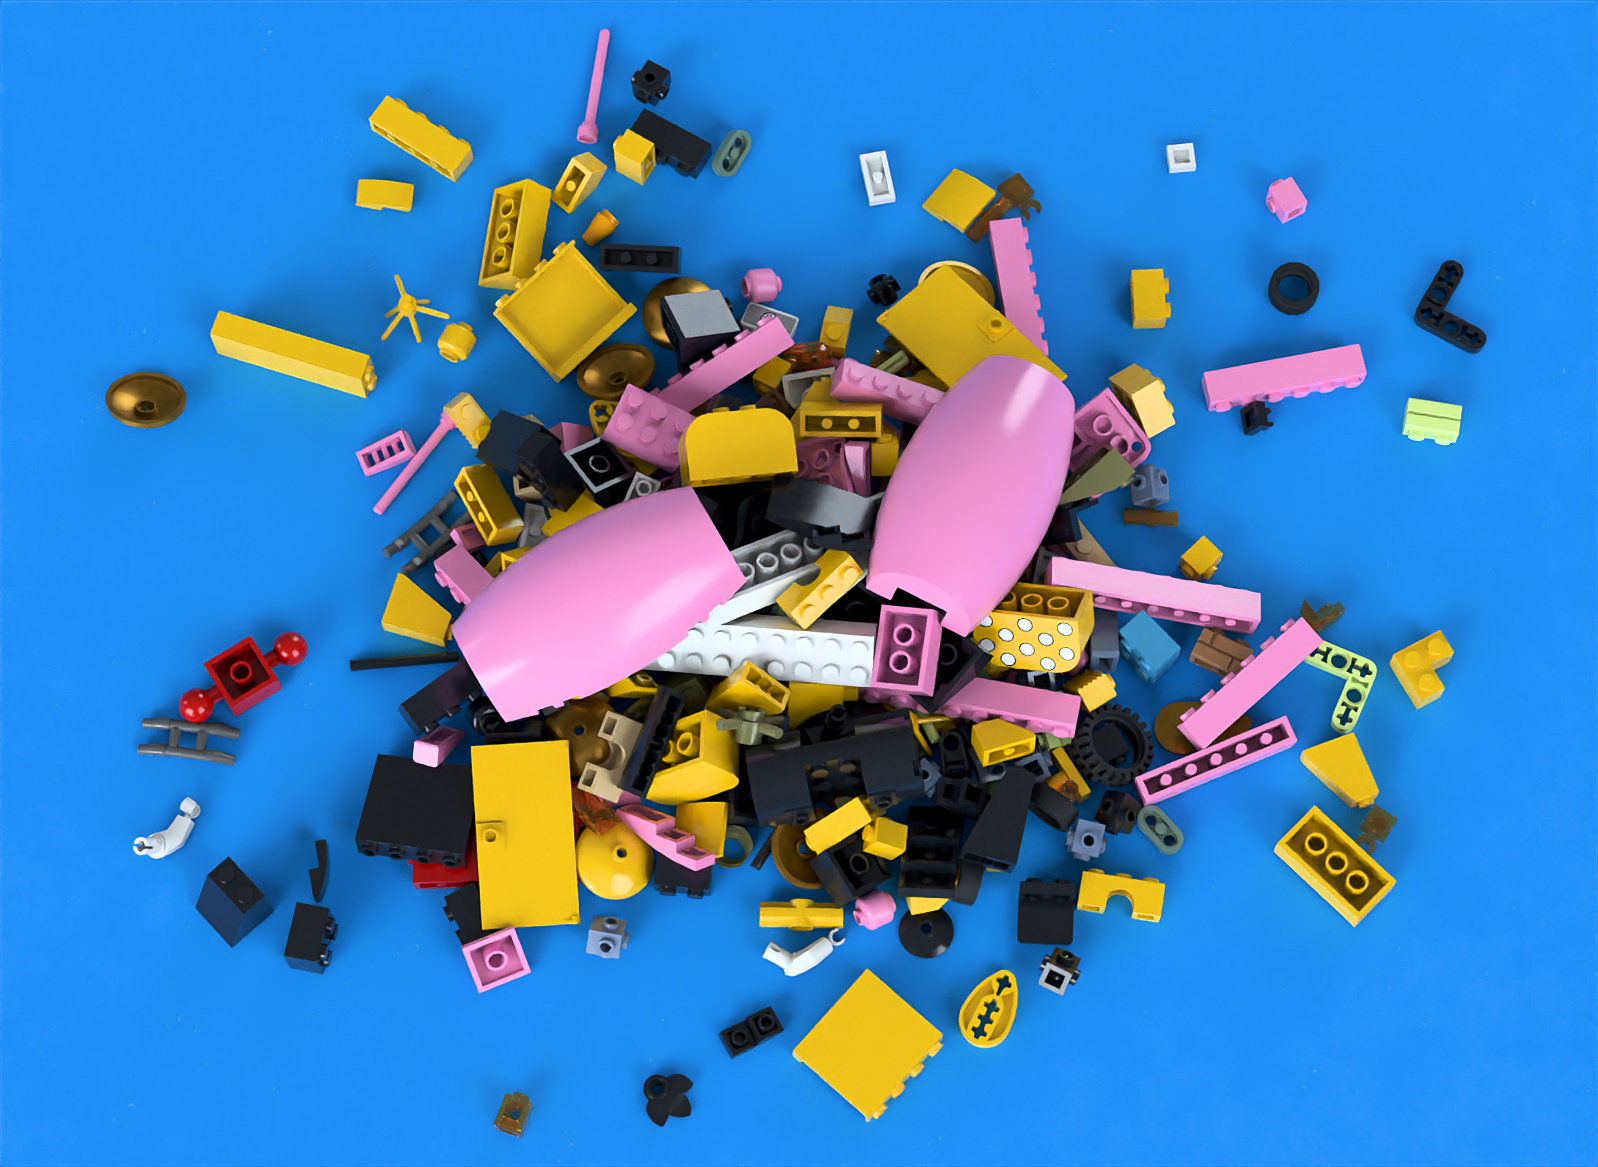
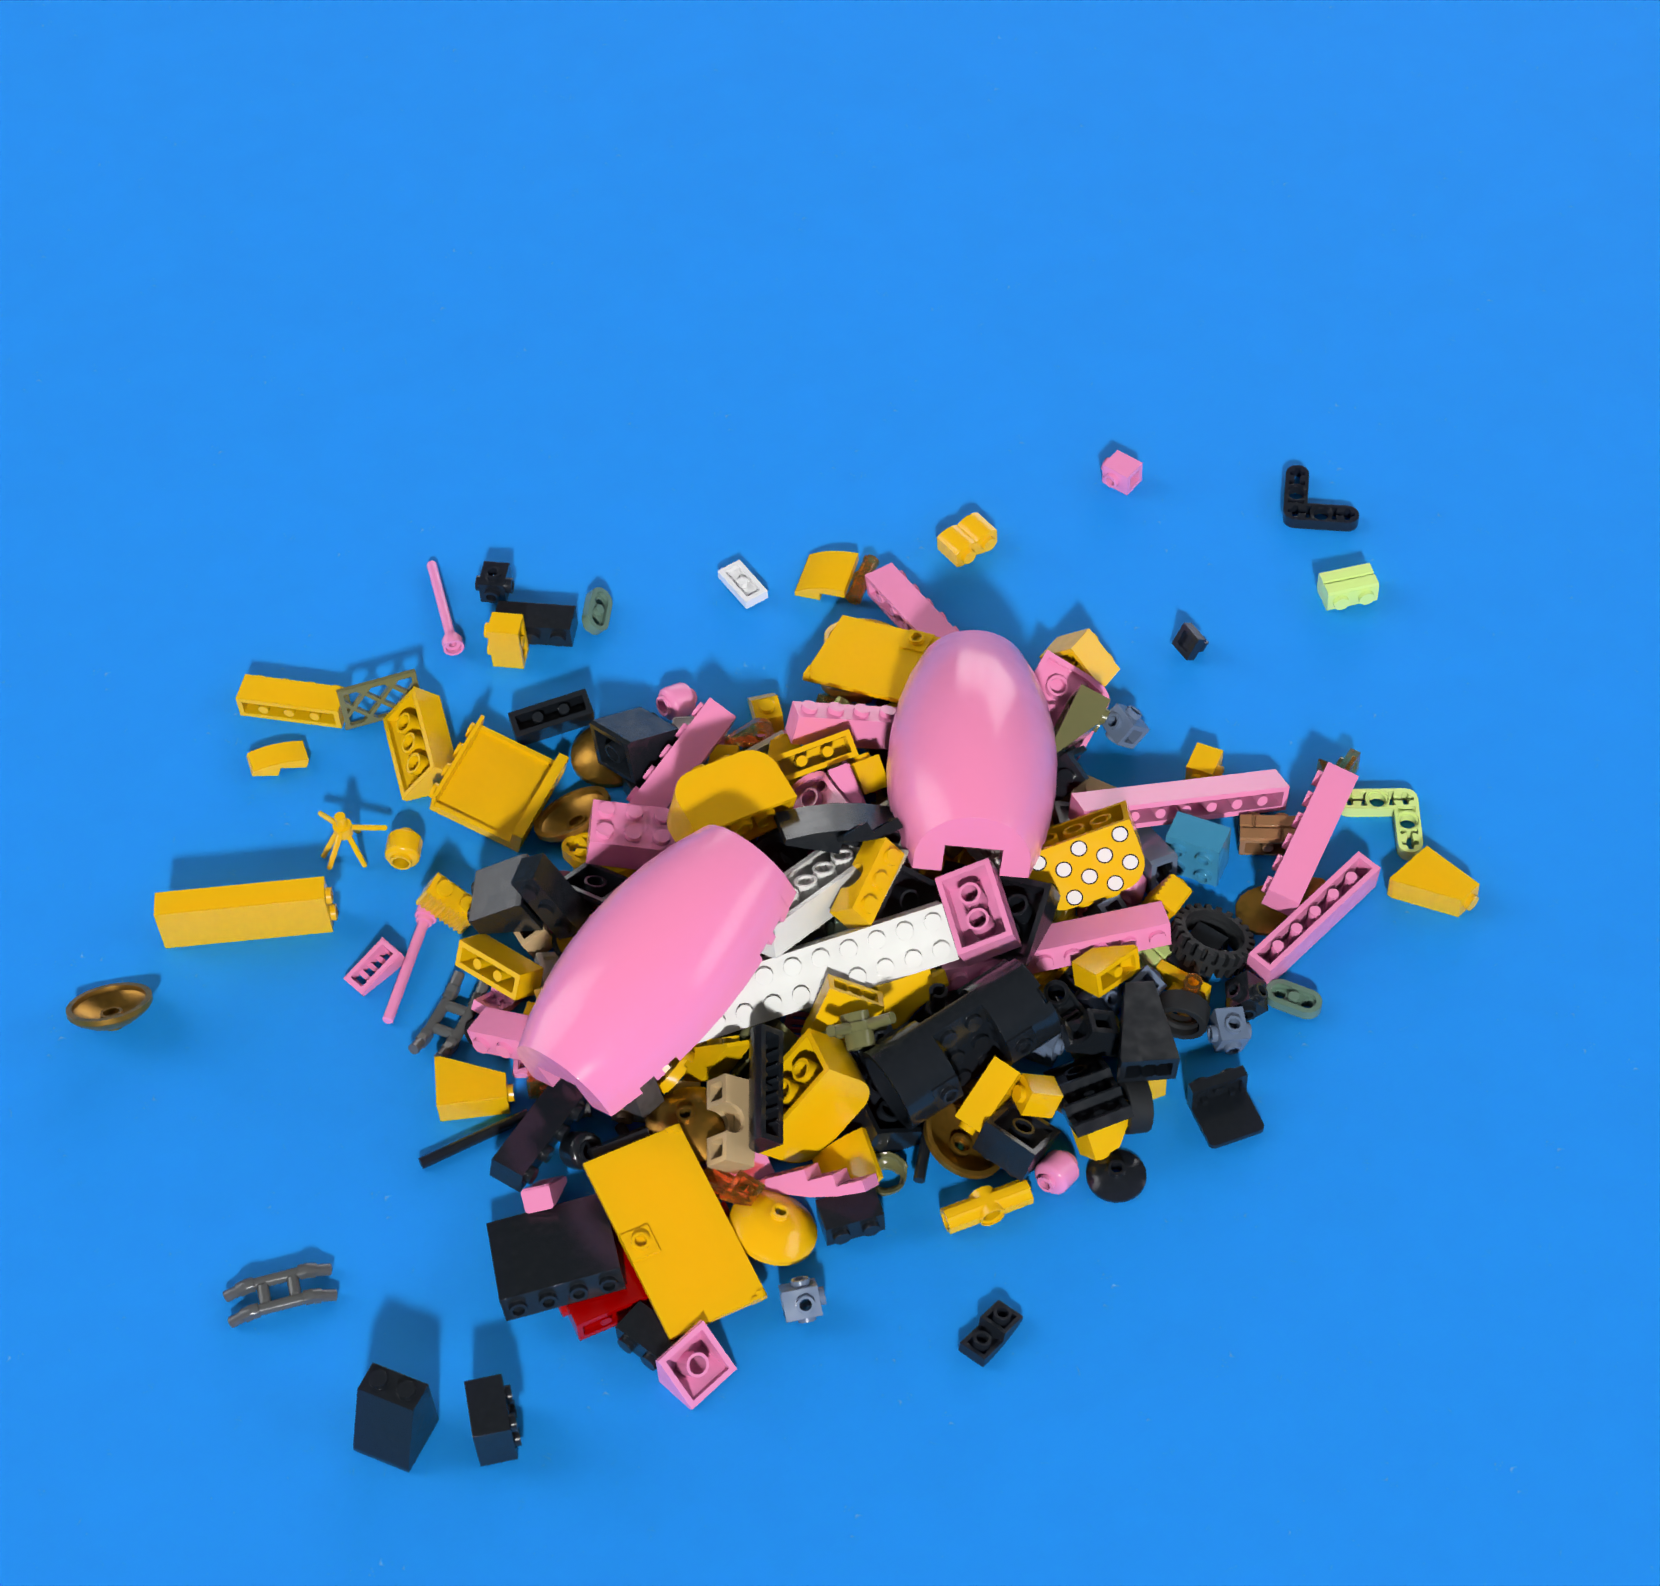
camera: 20 degrees left, 20 degrees down
(170, 840) = (301, 1390): white arm -> none
(243, 676) = (313, 1209): red brick -> none
(320, 876) = (472, 1360): black slope -> none
(483, 162) = (363, 688): none -> olive window
(511, 1103) = (783, 1518): clear orange brick -> none
(578, 181) = (461, 682): yellow slope -> none
(600, 227) = (499, 709): light orange cone -> none
(670, 1101) = (940, 1429): black plate -> none
(803, 959) = (1009, 1245): white arm -> none
(869, 1045) = (1117, 1293): yellow panel -> none
(883, 290) = (793, 663): black gear -> none
(974, 1007) = (1232, 1219): yellow piece -> none
(1019, 194) = (882, 551): clear orange plate -> none
(1059, 971) = (1269, 1162): black brick -> none
(1105, 216) = (967, 539): none -> yellow brick
(1143, 894) = (1309, 1058): yellow arch -> none
(1148, 298) = (1041, 586): yellow brick -> none
(1151, 517) = (1139, 752): clear orange pin -> none
(1181, 158) = (1009, 477): white tile -> none
(1284, 378) = (1196, 601): bright pink brick -> none
(1301, 271) = (1166, 520): black tyre -> none
(1334, 866) = (1475, 962): yellow brick -> none
(1376, 827) = (1492, 921): clear orange plate -> none
(1416, 668) = (1454, 776): yellow brick -> none

